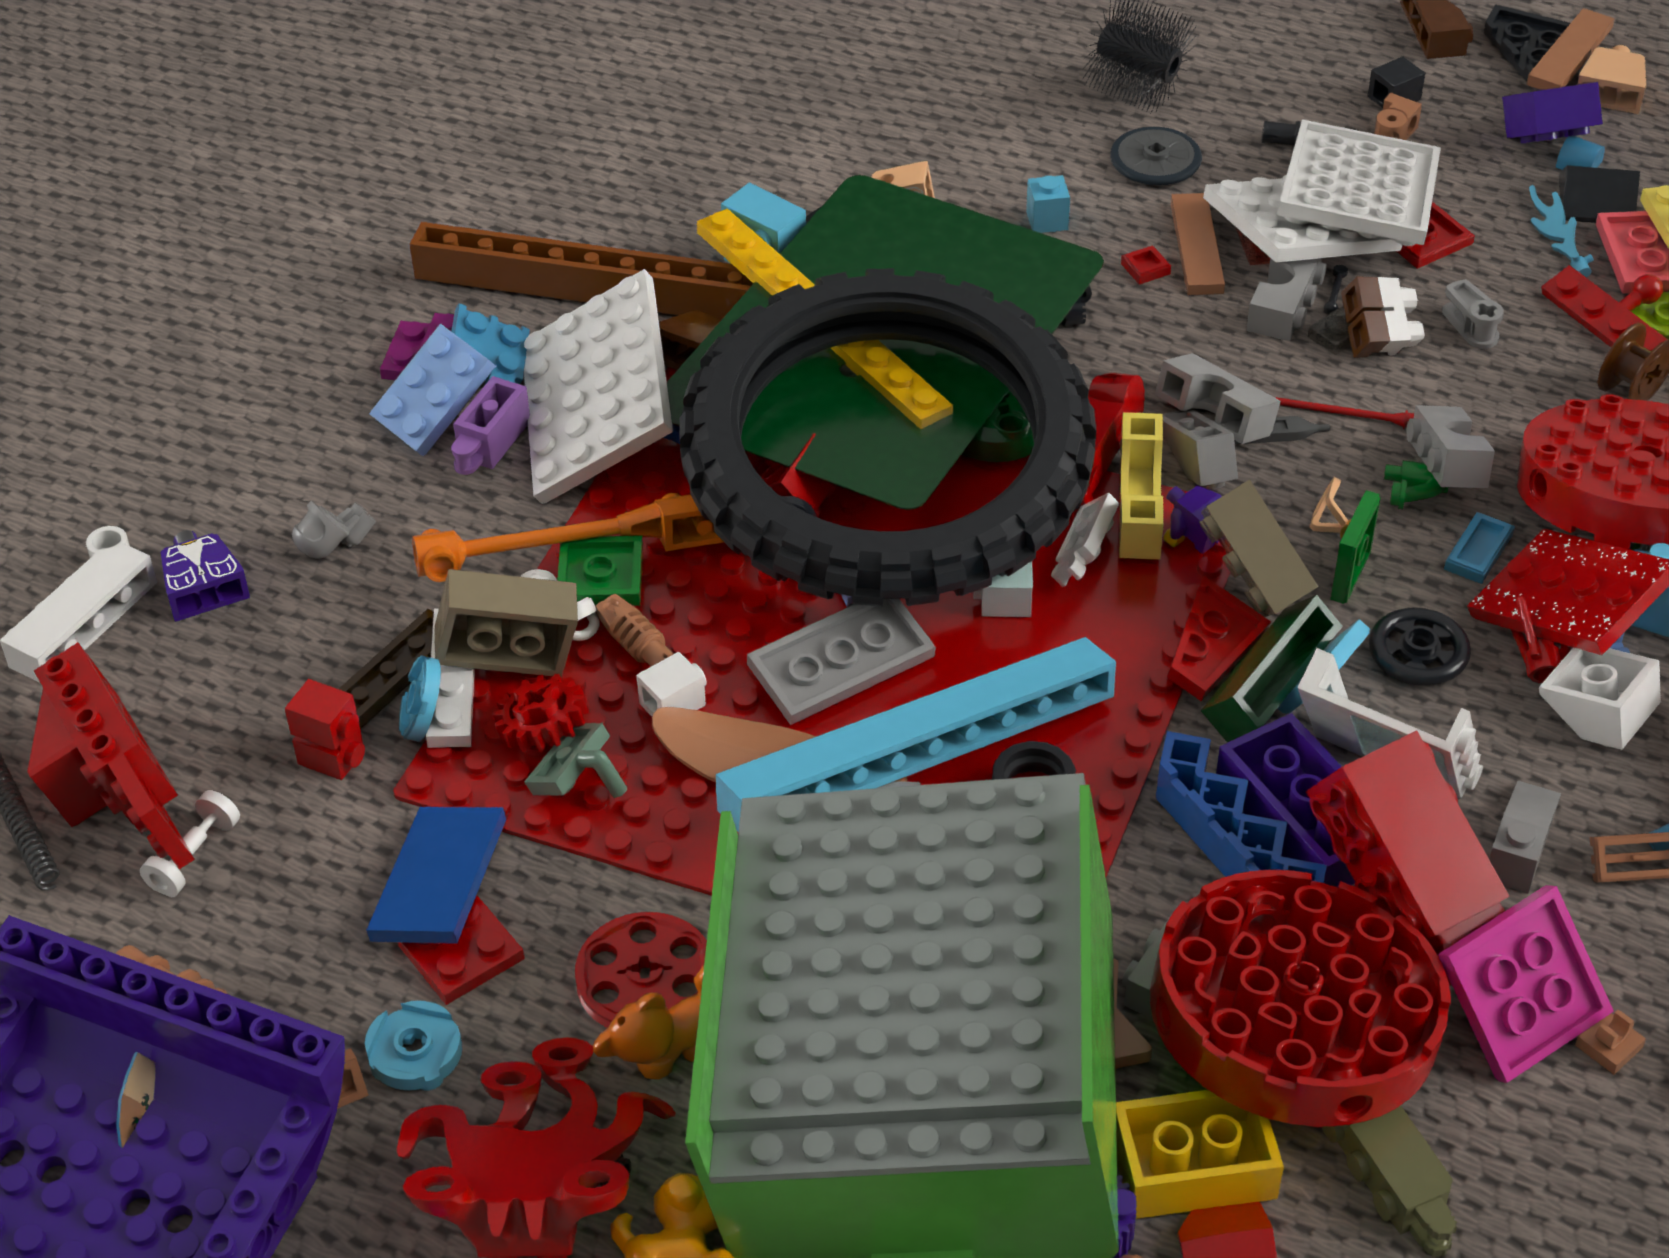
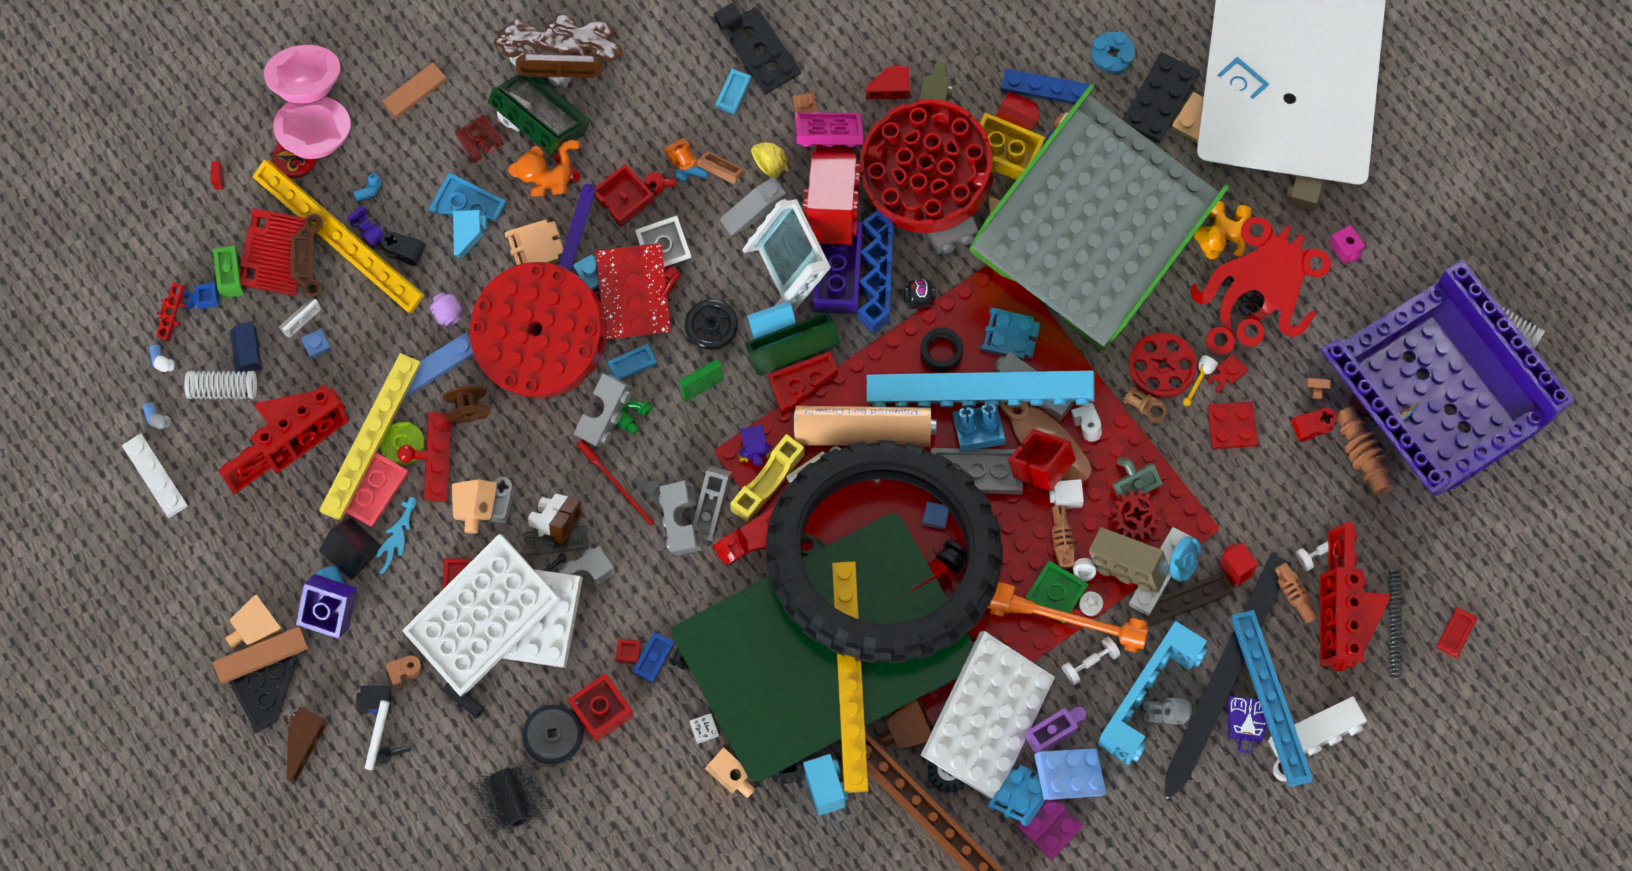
camera: 145 degrees left, 25 degrees up
(174, 586) = (1271, 698): none -> dark azure plate
(208, 759) = (1295, 592): none -> nougat hinge
(267, 629) = (1220, 684): none -> black piece
(318, 1002) = (1310, 425): none -> red piece
(360, 586) = (1179, 645): none -> medium azure plate
(419, 1068) = (1275, 397): medium azure plate -> none
(437, 875) = (1225, 461): blue tile -> none
(509, 505) = (1110, 648): none -> white wheel
(519, 1027) = (1230, 371): none -> red plate
(569, 1005) = (1206, 366): none -> hinge
(634, 892) = (1145, 404): none -> medium nougat connector
(652, 1033) = (1178, 320): orange animal -> none
(699, 804) = (1089, 421): none -> white leg
(735, 688) = (1046, 457): none -> red piece
(876, 687) = (978, 427): none -> dark azure plate
(1048, 204) = (649, 722): medium azure brick -> none
(1064, 605) = (857, 424): none -> light nougat piece
(1114, 276) = (653, 657): none -> blue plate
(1120, 184) = (600, 707): none -> red brick
(1141, 844) = (919, 294): none -> black head
(1197, 244) = (588, 650): nougat tile -> none
(1257, 549) = (758, 390): dark tan brick -> none
(1323, 61) = (388, 752): none -> black hand
(1328, 499) = (688, 415): light nougat piece -> none
(1356, 53) = (377, 734): none -> white bar
(1495, 274) = (473, 502): none -> light nougat torso
(1498, 1156) = (890, 84): none -> red slope
(1595, 917) = (770, 159): none -> light yellow hat

